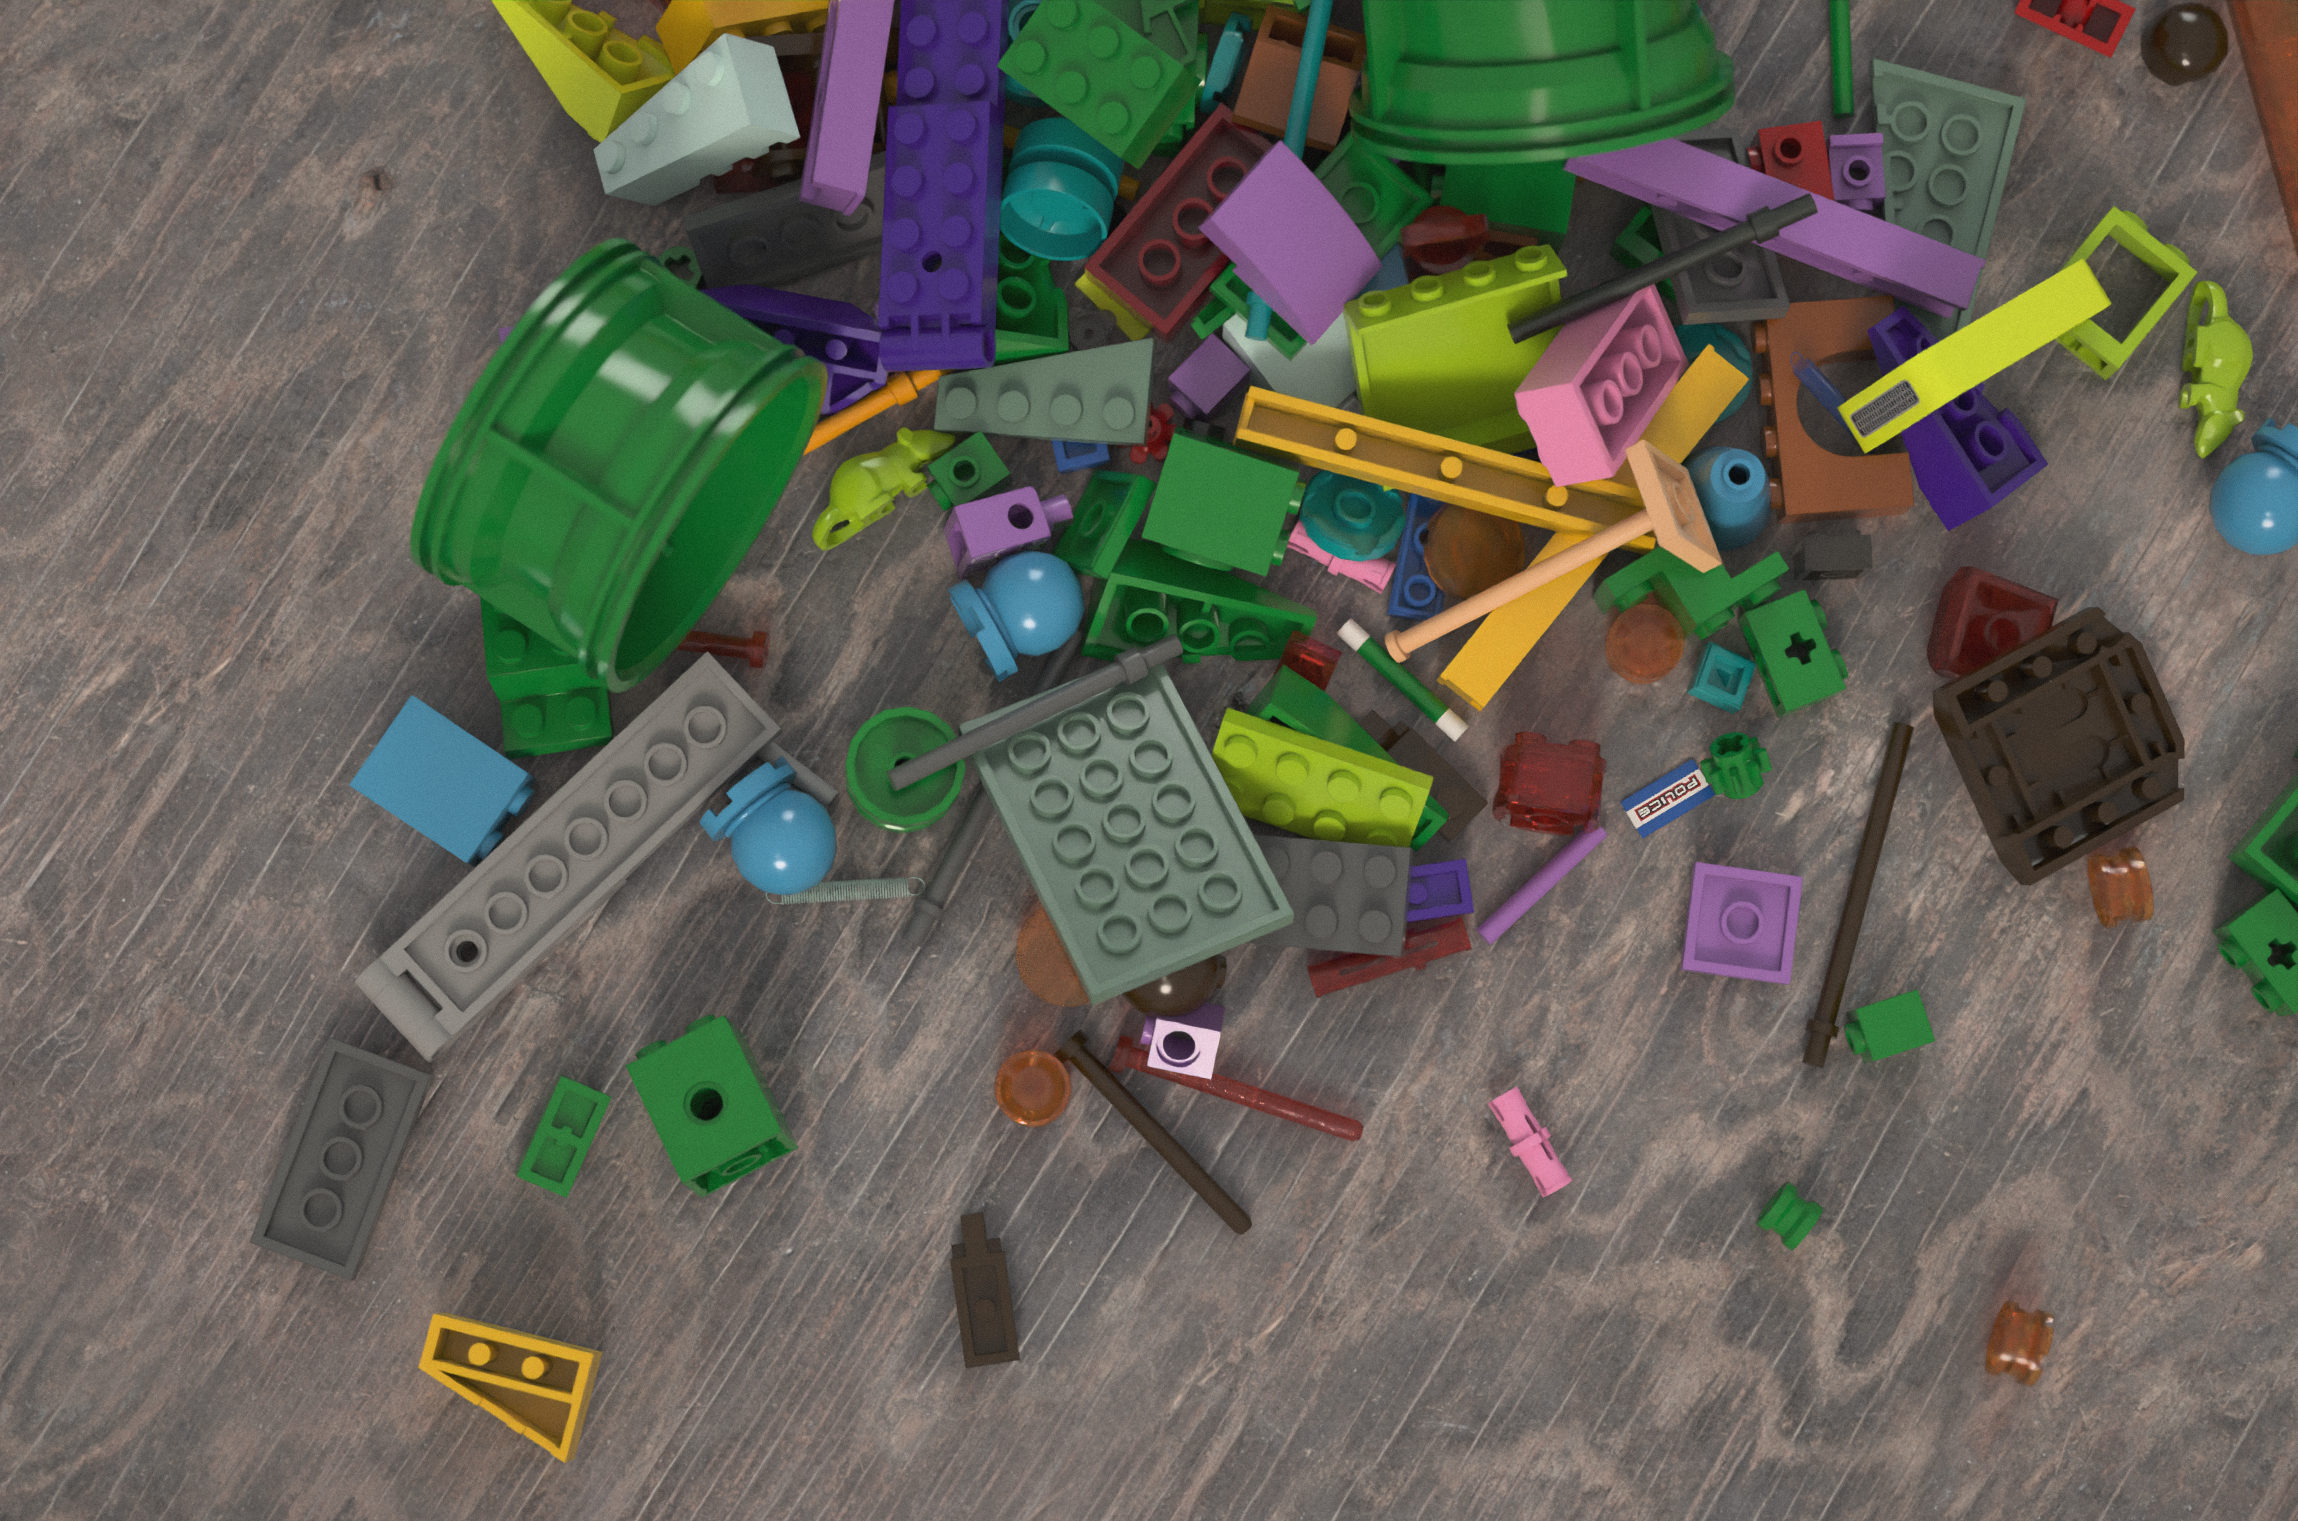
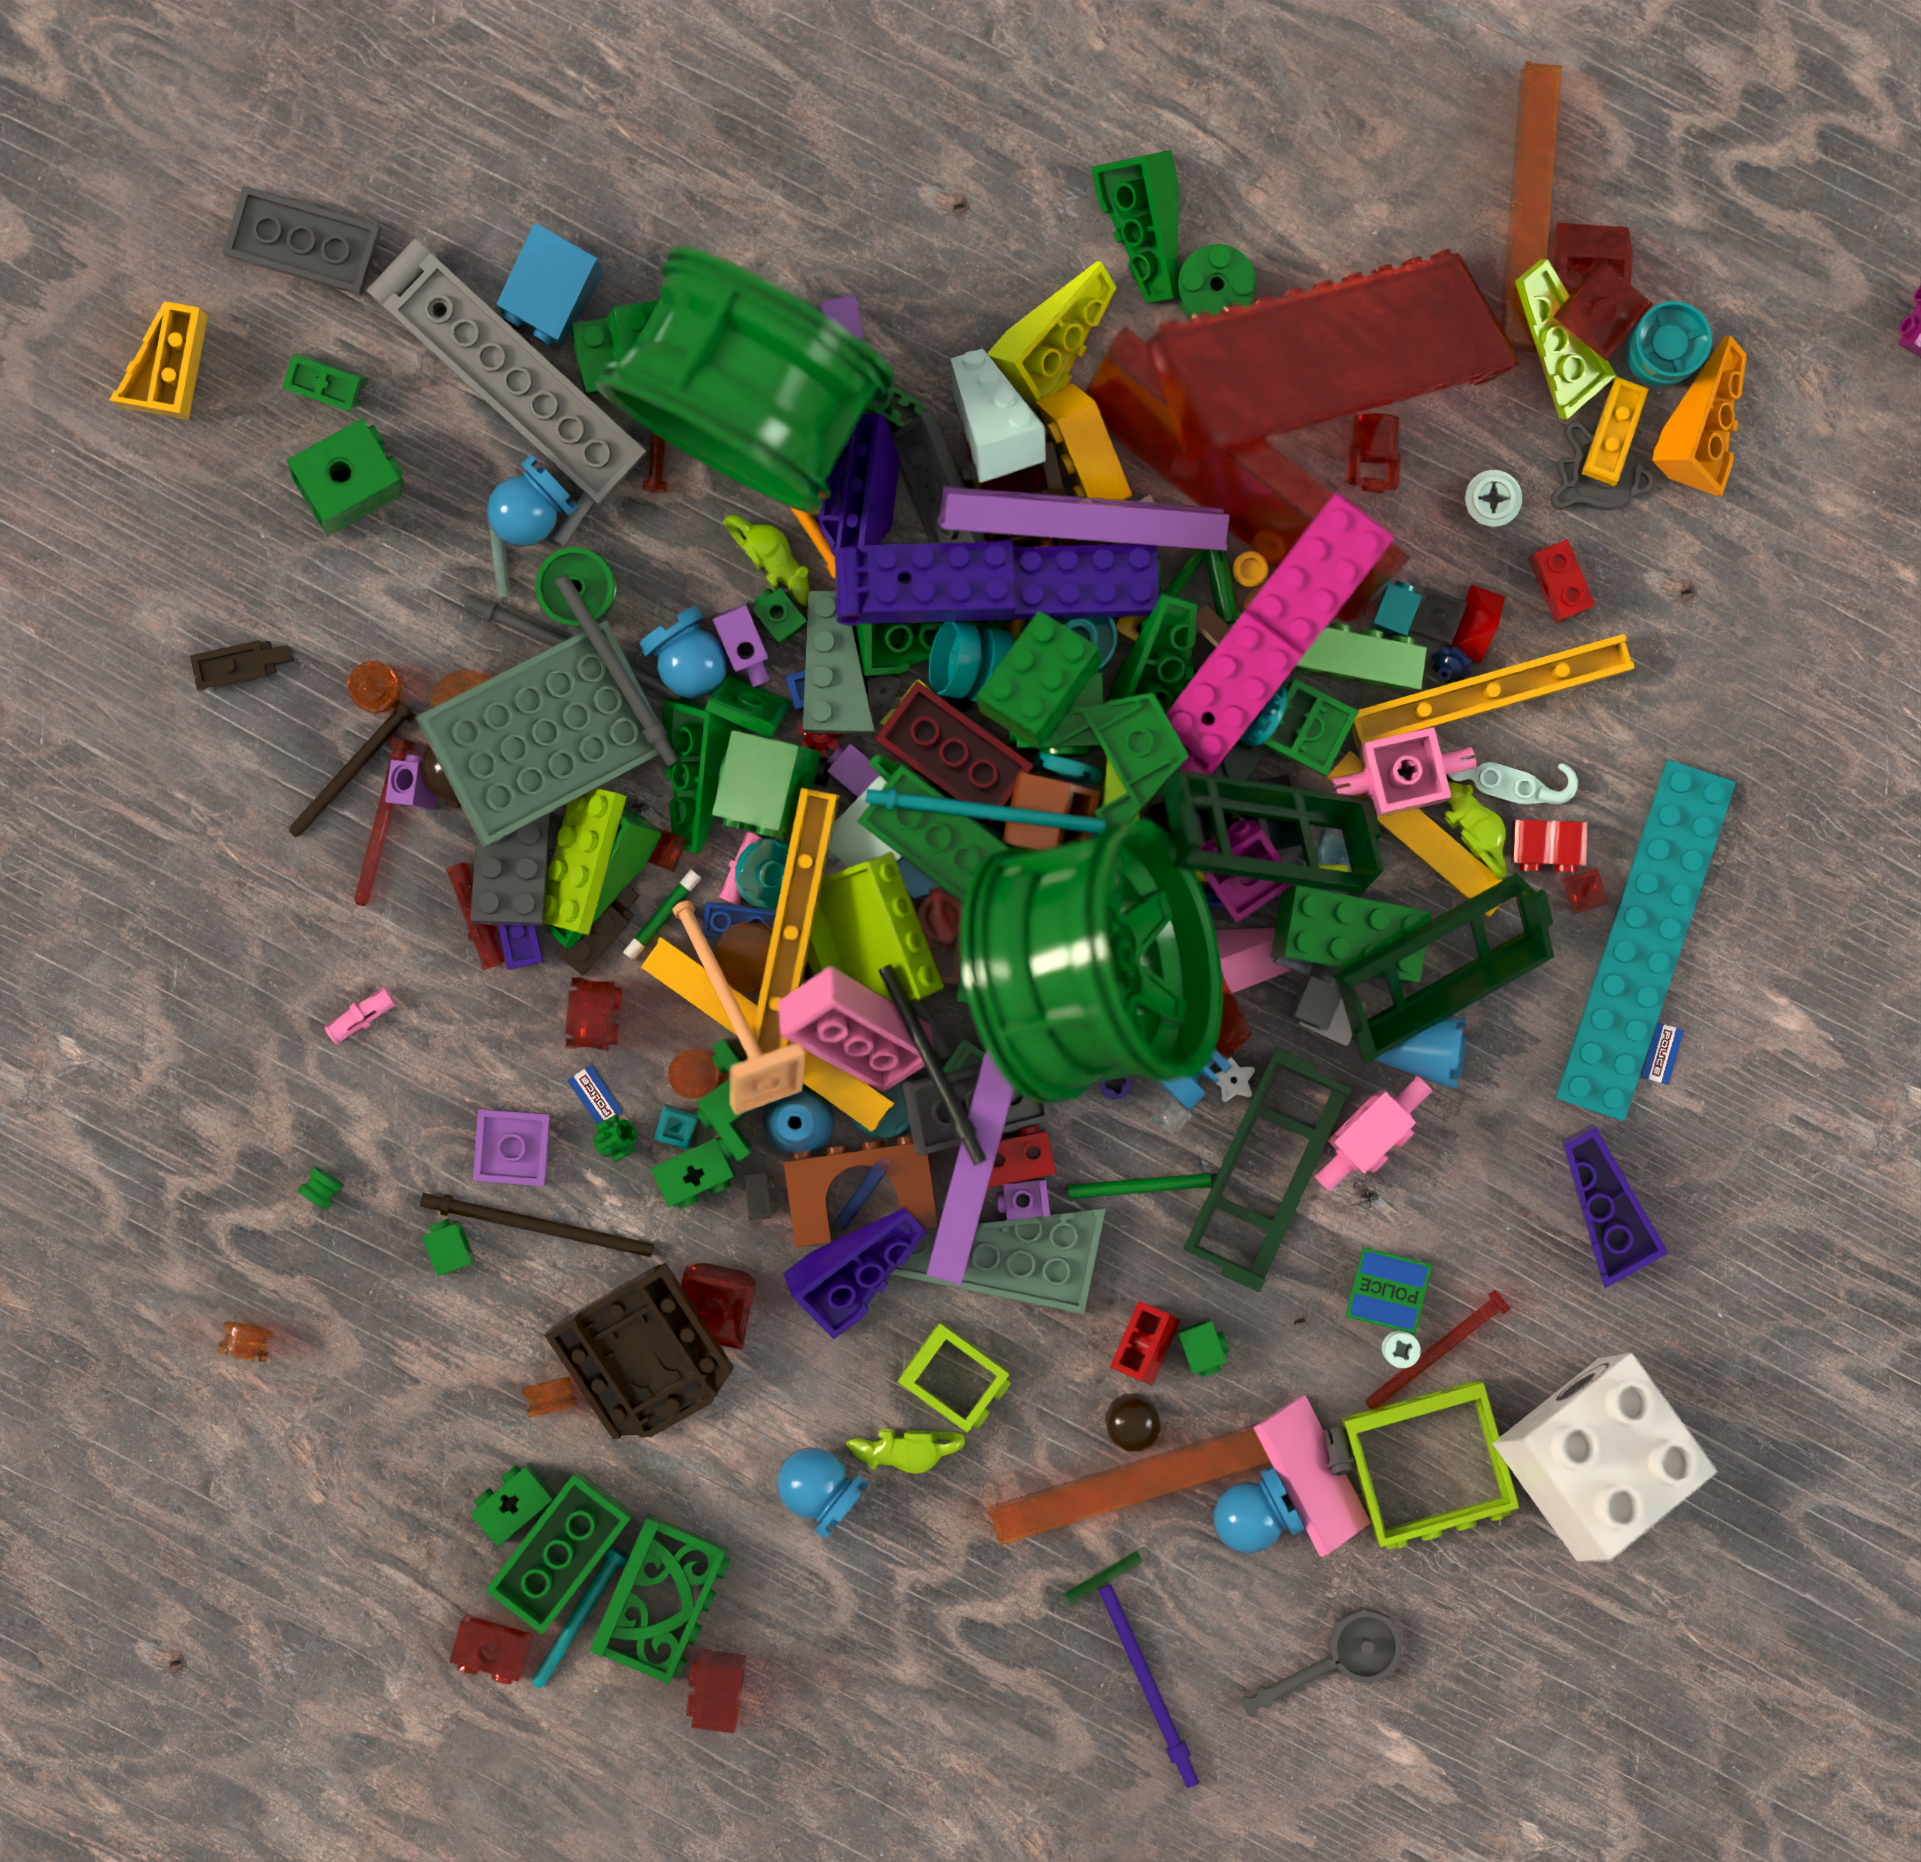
camera: 90 degrees right, 5 degrees up
(1292, 242) = (925, 814): medium lavender slope -> none
(1539, 884) = (531, 1013): medium lavender bar -> none
(1973, 355) = (891, 1283): neon yellow beam -> none

